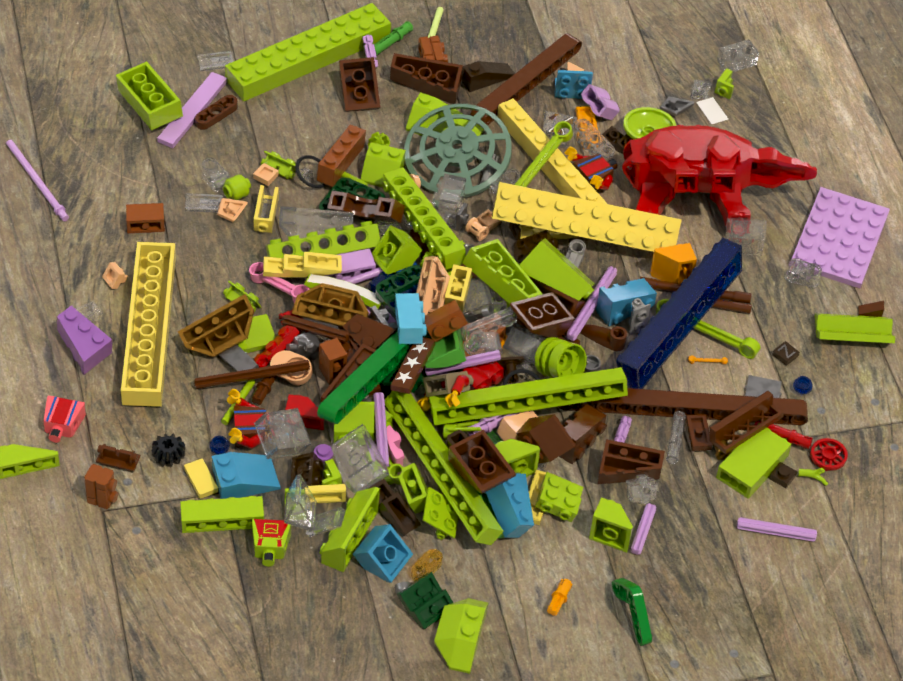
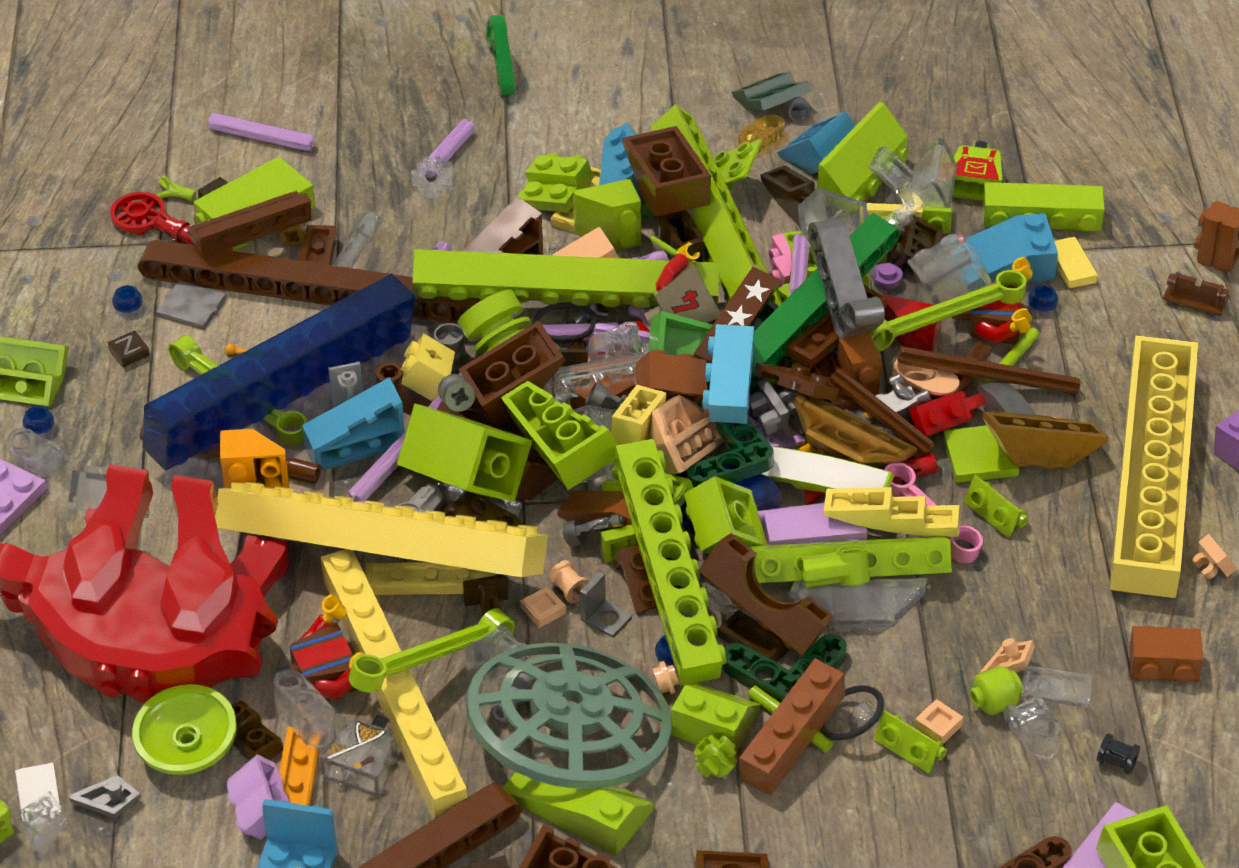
camera: 165 degrees left, 5 degrees down
(168, 449) = (1121, 292): black gear -> none
(171, 166) = (1106, 753): none -> black bush
(265, 210) = (943, 649): light yellow window -> none
(318, 472) = (911, 201): none -> clear bracket
(321, 381) = (952, 307): none -> lime piece
(331, 219) = (844, 566): none -> lime piece
(346, 361) = (841, 280): none -> flat silver beam
(412, 484) = (765, 205): lime hinge -> none
(449, 198) = (611, 609): clear brick -> none
(460, 633) = (726, 62): lime wedge -> none
(547, 434) = (563, 217): reddish brown slope -> none
(559, 596) = (590, 82): light orange axle -> none
(570, 298) = (452, 386): none -> flat silver wheel
(596, 336) = (426, 366): none -> light yellow brick
(611, 525) = (499, 130): lime slope -> none
(625, 461) = (439, 208): reddish brown wedge -> none
(814, 298) = (38, 419): none -> clear blue plate

